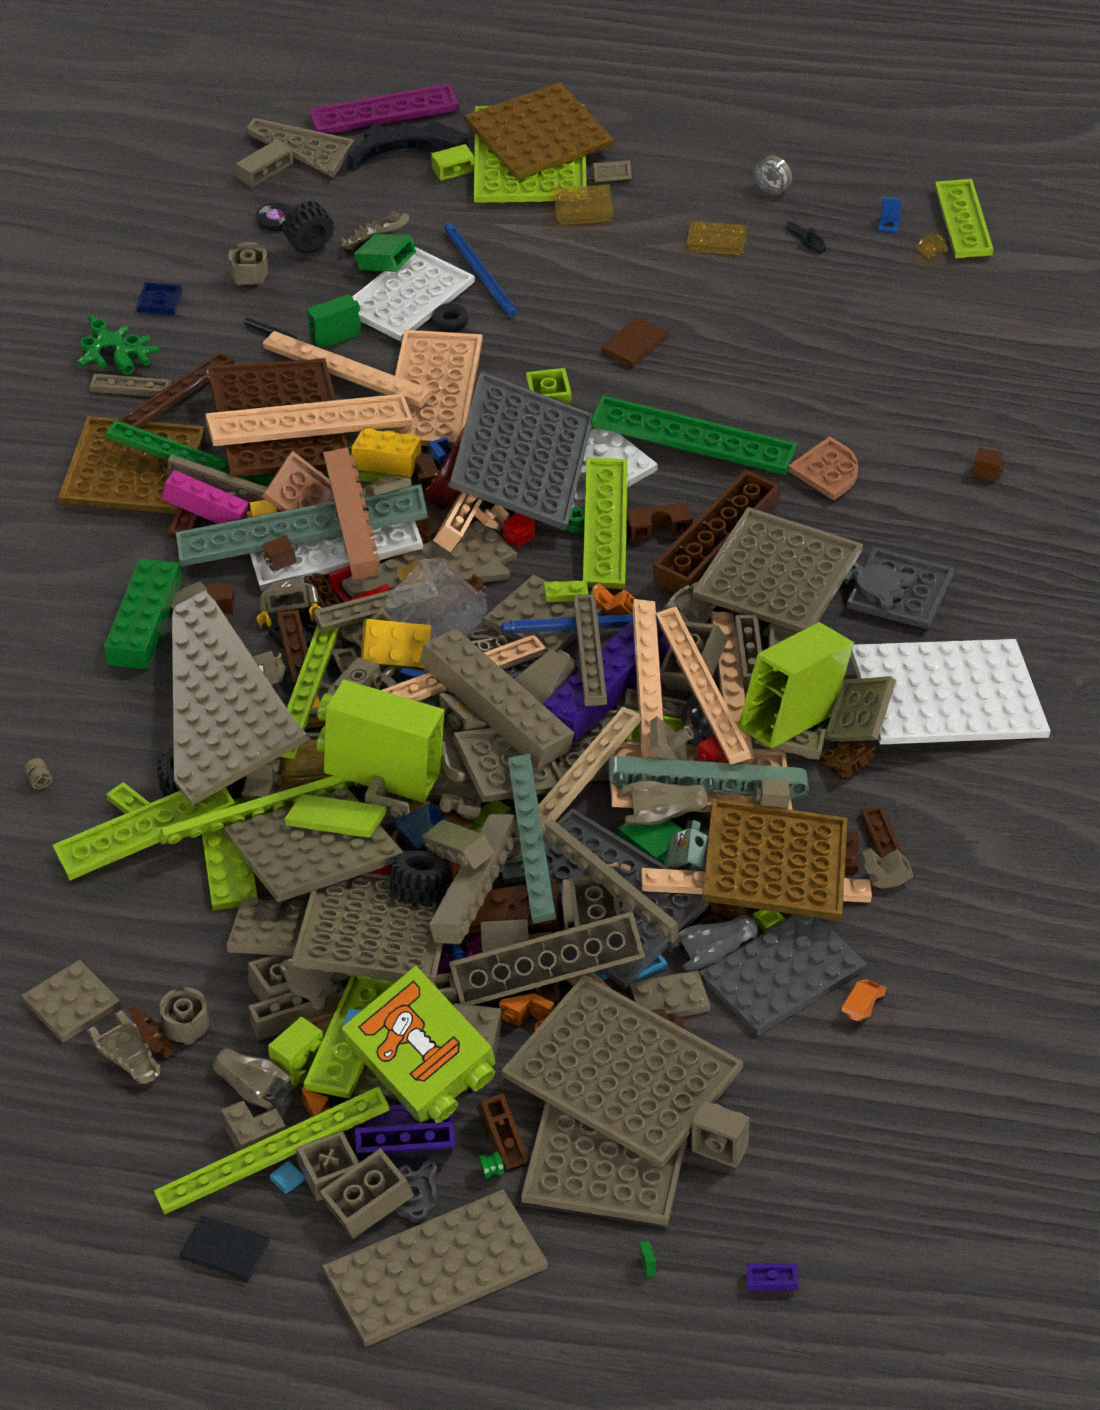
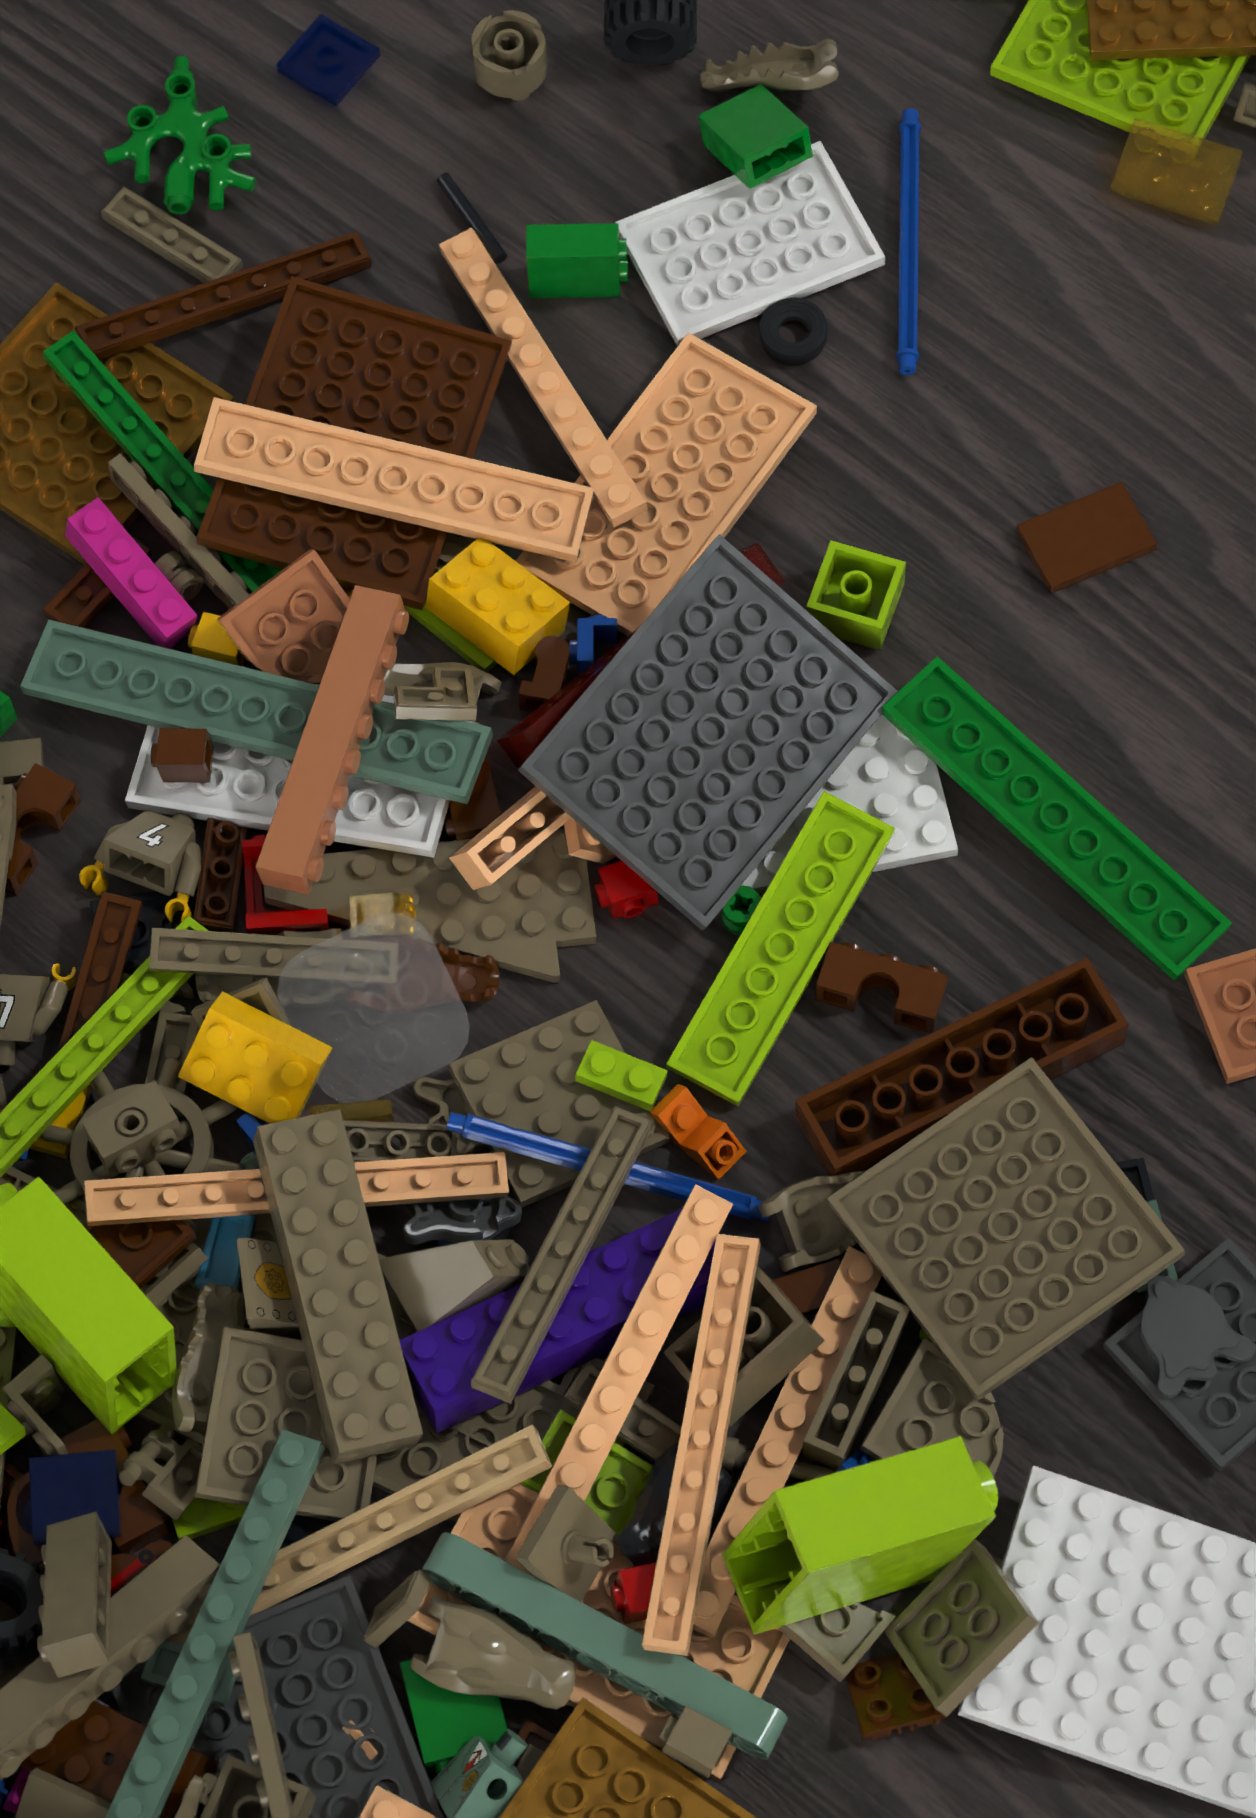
camera: 30 degrees right, 20 degrees up
(605, 801) = (397, 1608): none -> dark tan tile

